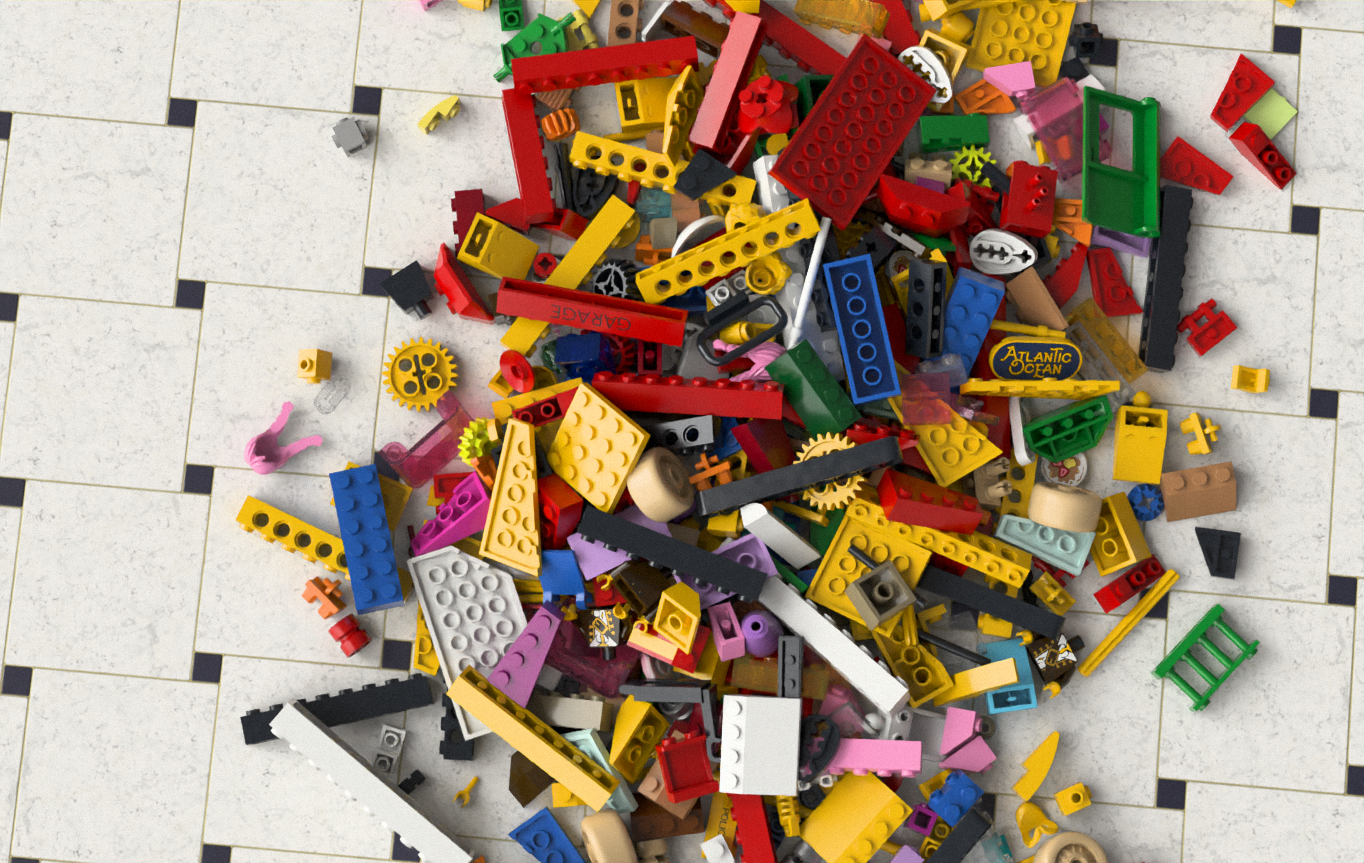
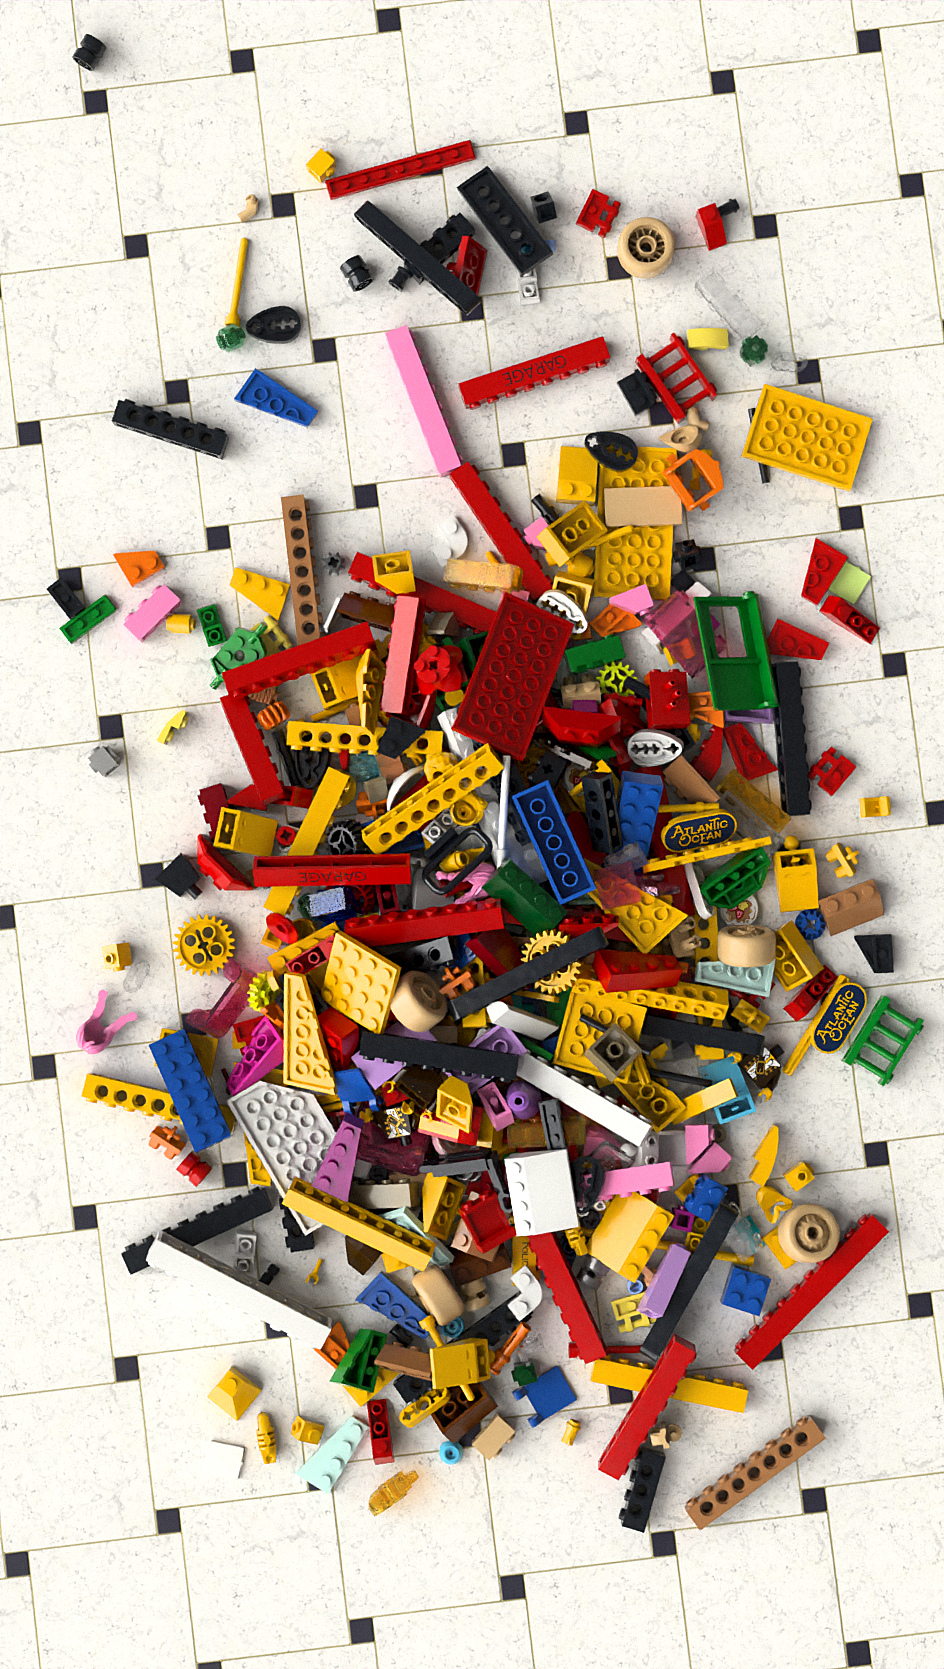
camera: 10 degrees left, 5 degrees up
(784, 61) = (444, 625): none -> dark tan slope
(1157, 618) = (838, 1017): none -> tile

